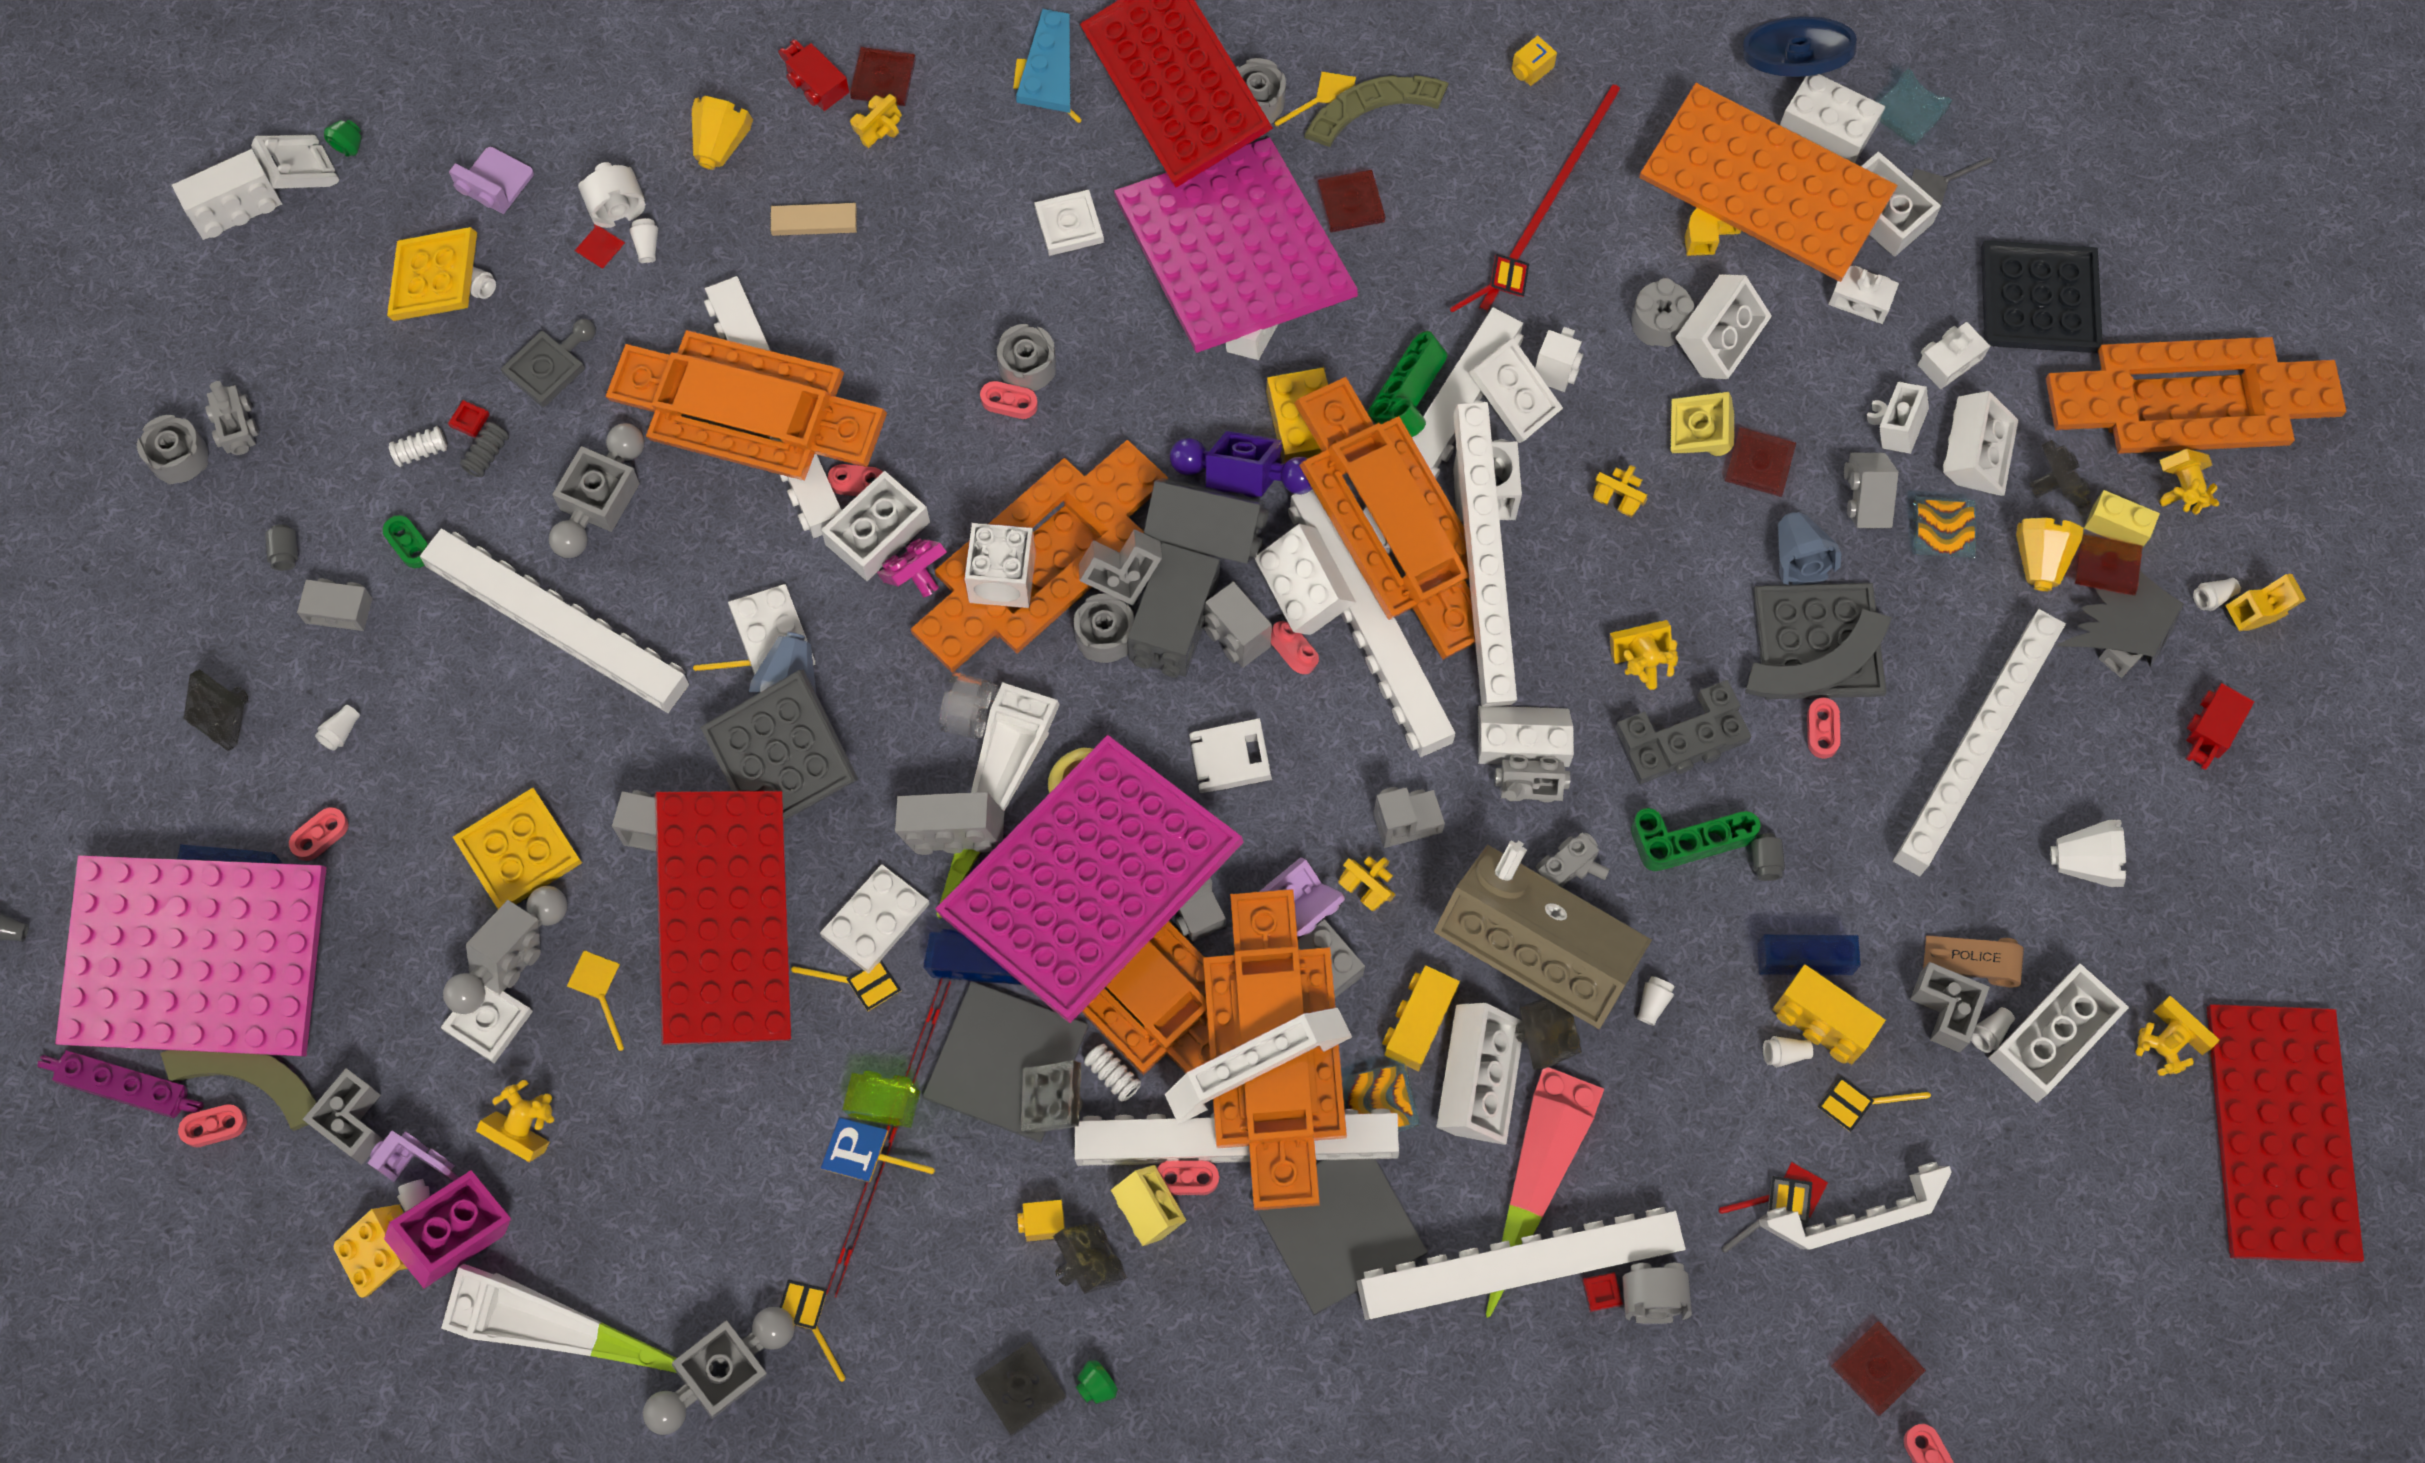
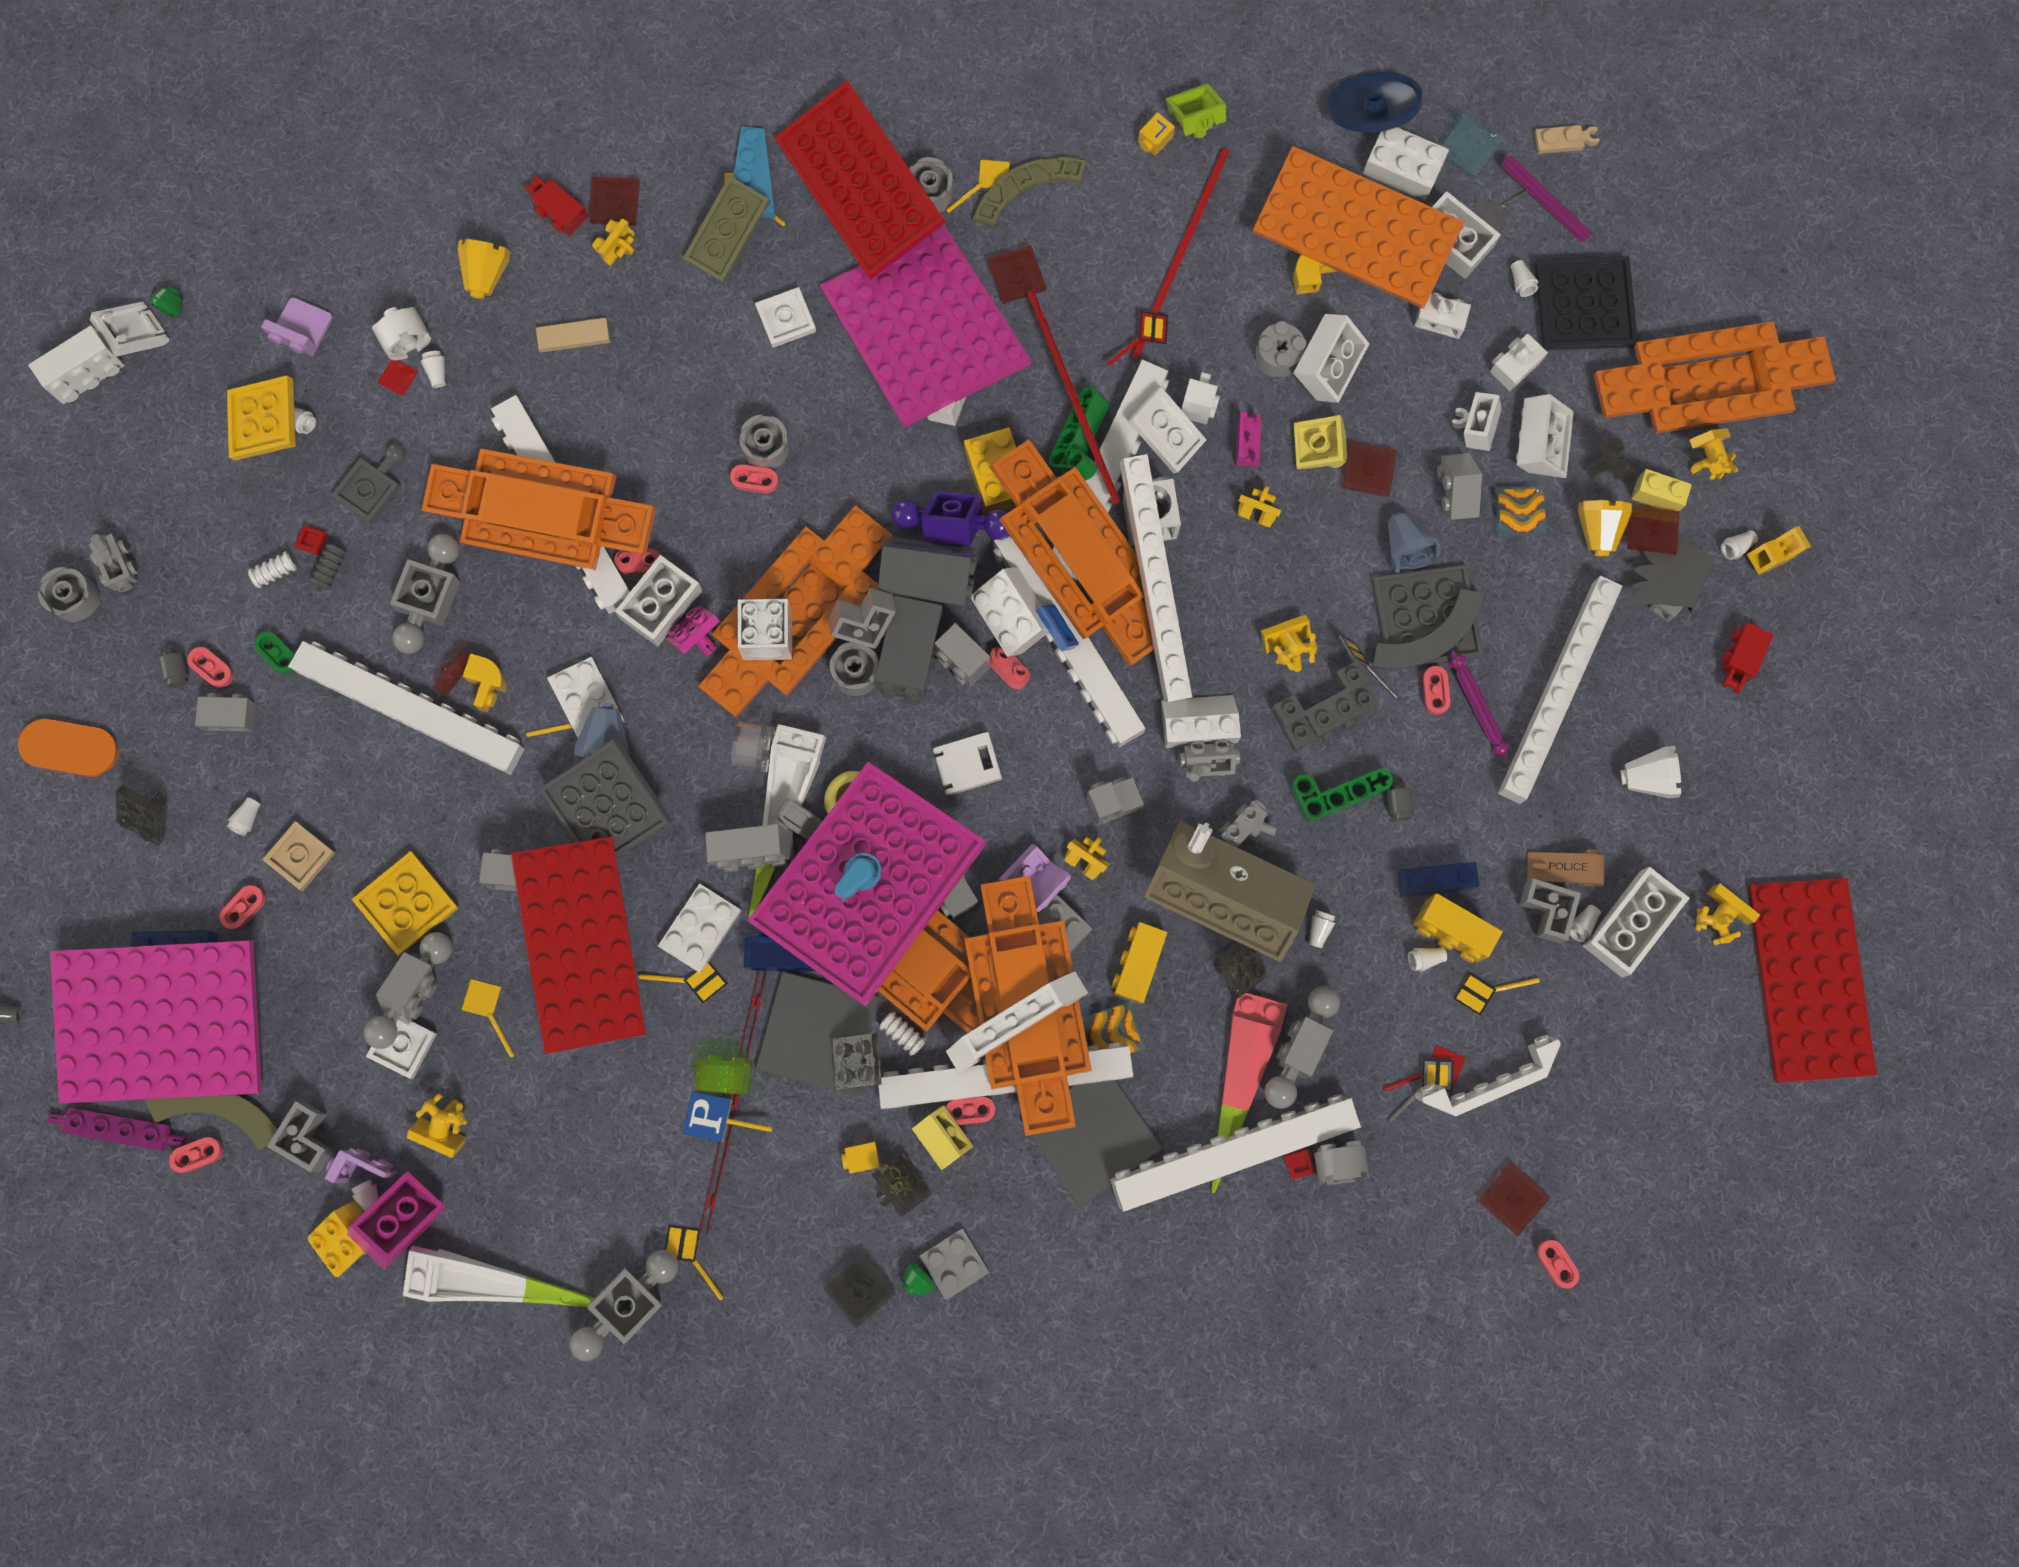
camera: 10 degrees left, 10 degrees up
(140, 626) = (68, 747): none -> orange tile
(327, 551) = (211, 668): none -> coral plate
(396, 780) = (298, 856): none -> tan plate
(616, 585) = (452, 673): none -> clear red plate
(656, 593) = (488, 676): none -> yellow brick
(1011, 117) = (727, 229): none -> olive plate
(1011, 796) = (797, 818): none -> light grey tile
(1081, 862) = (858, 875): none -> dark azure piece
(1145, 1369) = (954, 1264): none -> light grey plate
(1358, 601) = (1057, 627): none -> blue tile
(1405, 342) = (1073, 397): none -> red piece
(1480, 1074) = (1190, 1003): white slope -> none
(1585, 37) = (1197, 110): none -> lime brick
(1614, 413) = (1248, 440): none -> dark pink hinge
(1624, 1137) = (1304, 1047): none -> light grey brick
(1726, 672) = (1356, 654): none -> flat silver piece
(1877, 751) = (1479, 705): none -> magenta wheel
(1967, 264) = (1524, 280): none -> white cone
(2000, 175) = (1544, 197): none -> magenta axle
(2026, 111) = (1564, 139): none -> tan plate

